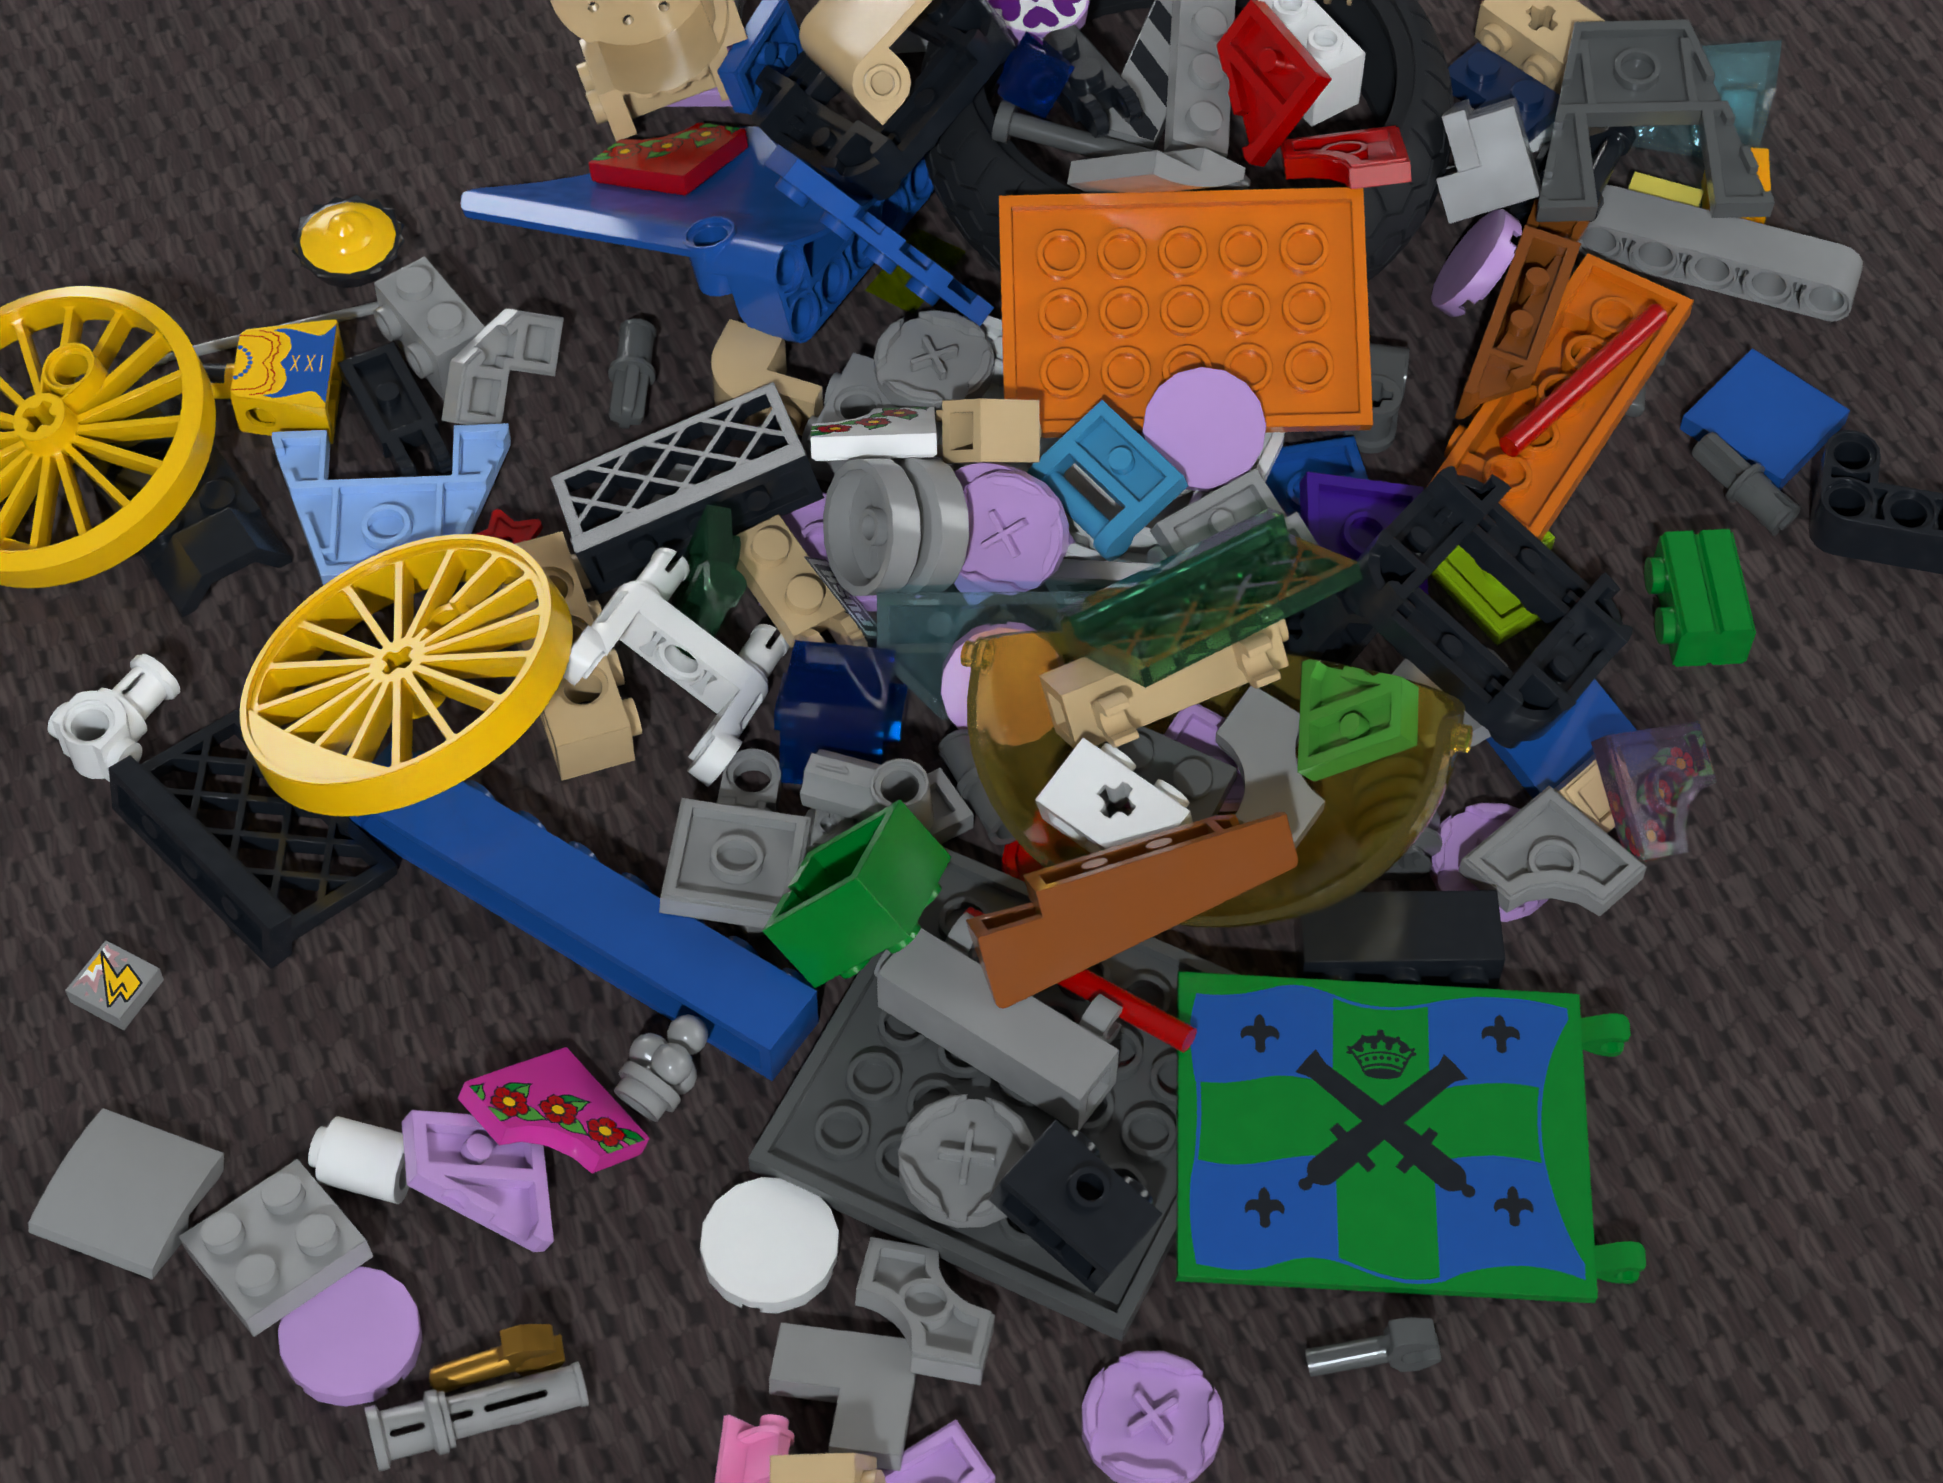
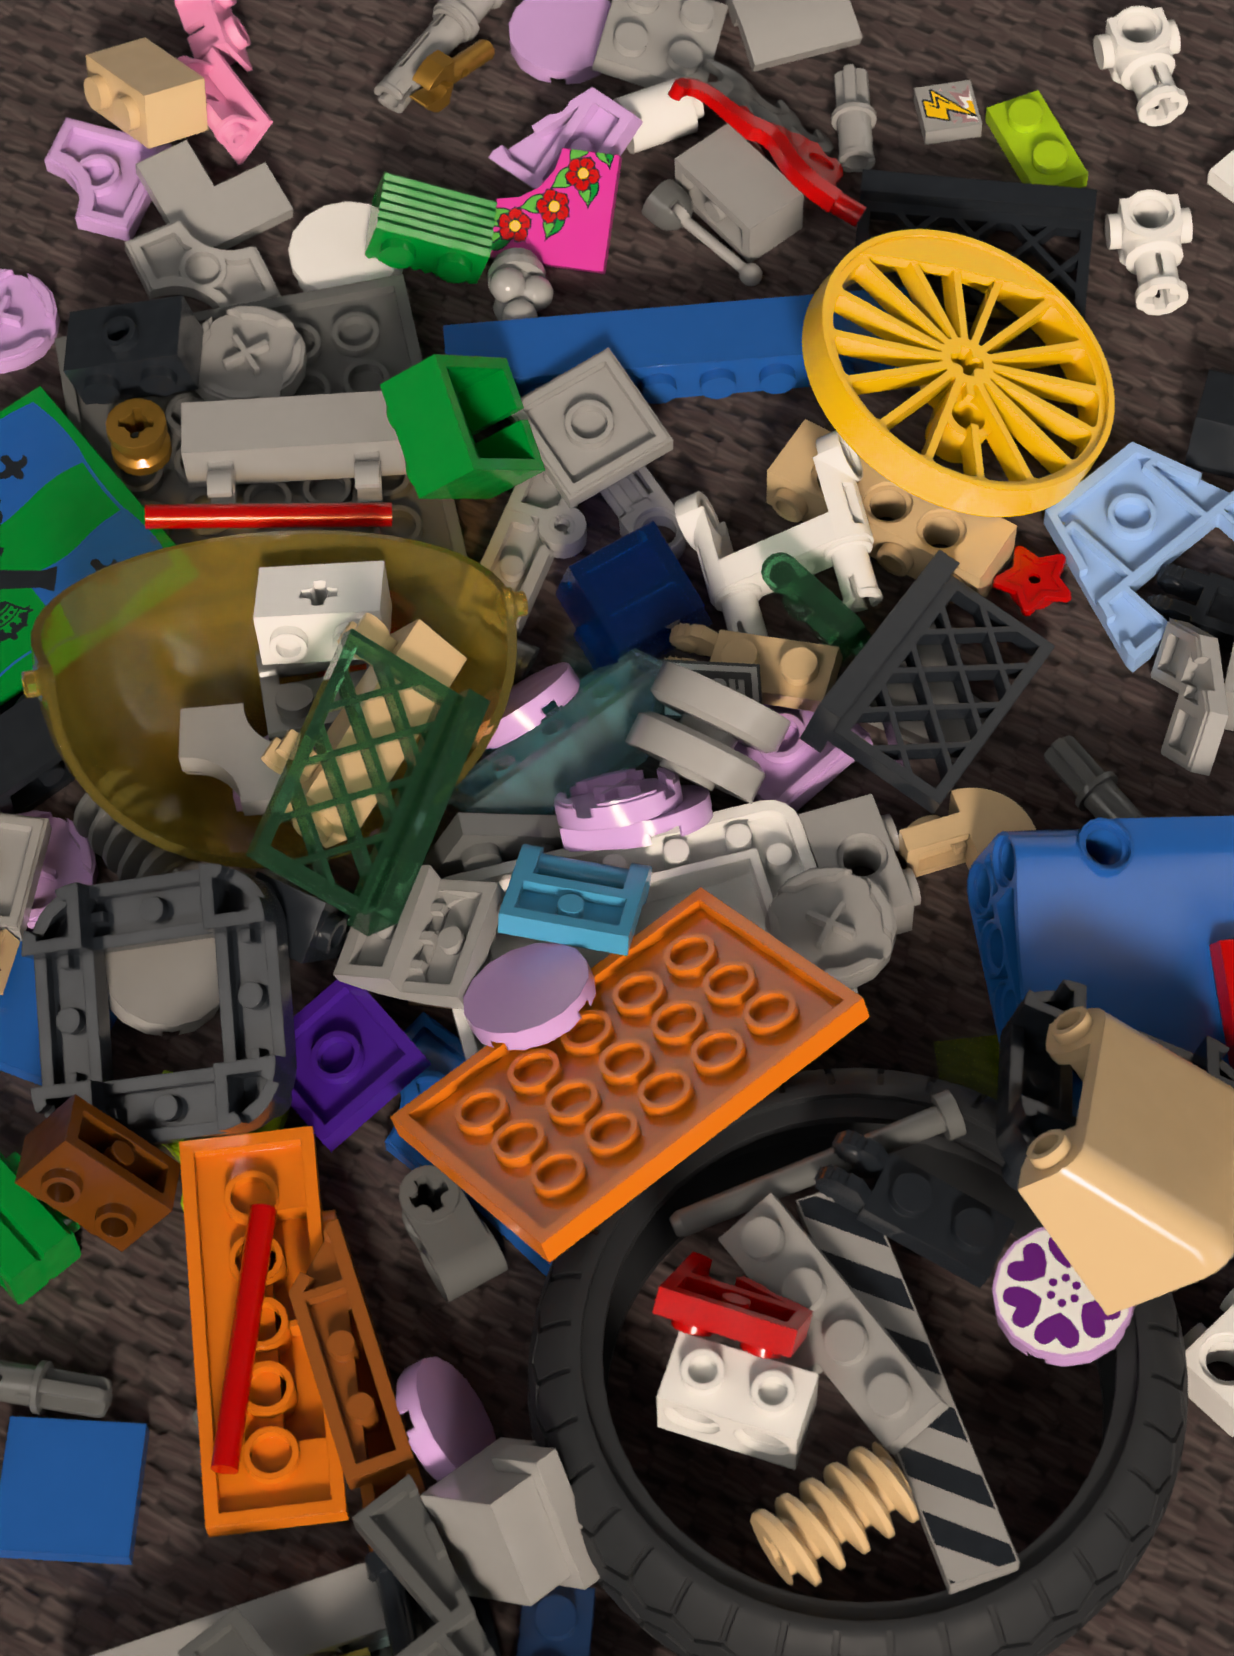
camera: 145 degrees right, 5 degrees up
(82, 896) = (1035, 142): none -> lime plate
(199, 1033) = (854, 119): none -> light grey axle
(292, 1039) = (797, 153): none -> red piece
(377, 1022) = (740, 193): none -> light grey brick
(447, 1059) = (672, 208): none -> hinge
(686, 1174) = (430, 229): none -> green brick
(864, 788) = (522, 541): light grey piece -> none
(877, 435) = (783, 786): white tile -> none
(885, 246) = (962, 956): blue wing -> none
(989, 431) = (699, 843): tan brick -> none
(1034, 75) = (958, 1167): clear blue bracket -> none
(1123, 897) = (255, 524): dark orange wedge -> none
(1135, 1152) = (152, 446): none -> pearl gold wheel
(1154, 172) = (731, 1098): light grey slope -> none
(1350, 157) = (581, 1295): red tile -> none
(1352, 718) = (185, 789): bright green wing -> none
(1620, 538) = (98, 1173): none -> reddish brown brick

